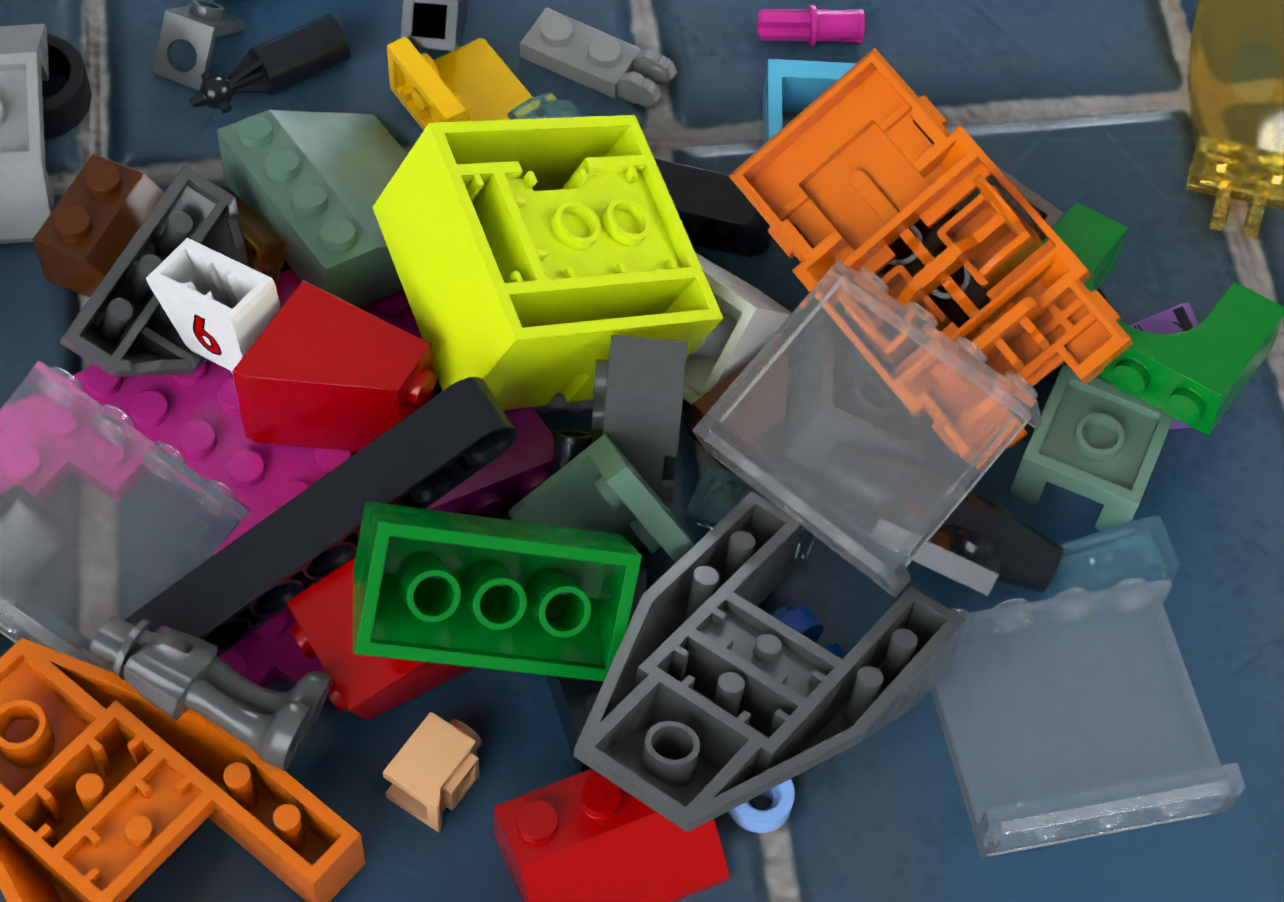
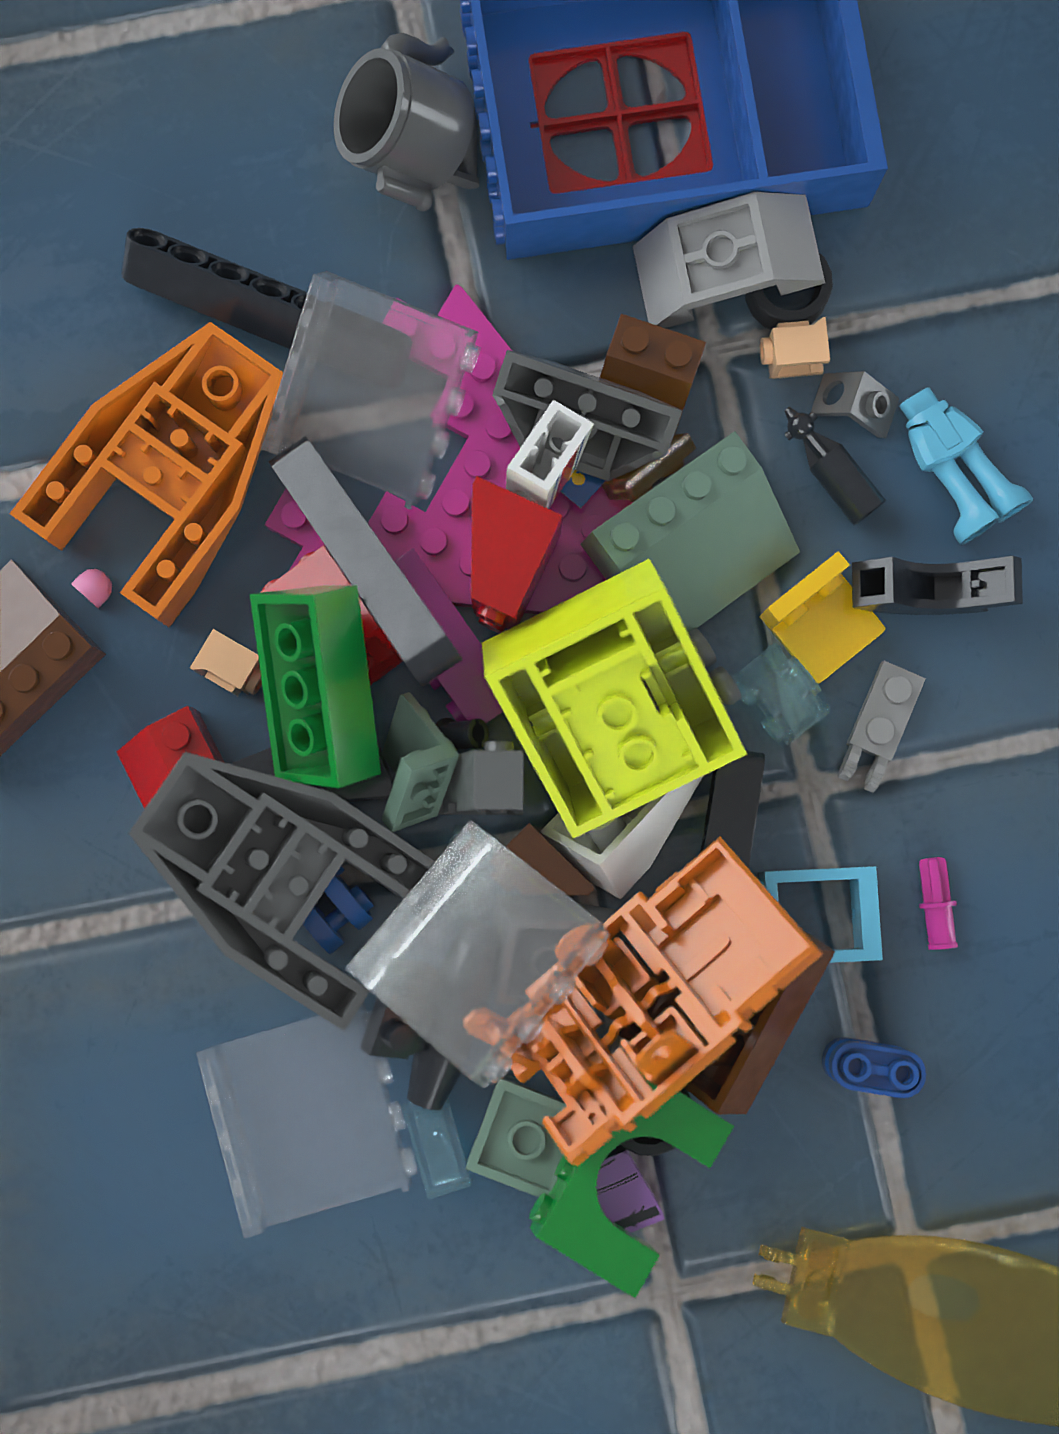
camera: 90 degrees right, 25 degrees up
(117, 84) = (796, 349): none -> light nougat window
(186, 674) = (252, 473): dark grey piece -> none
(1001, 93) = (874, 1067): none -> blue brick

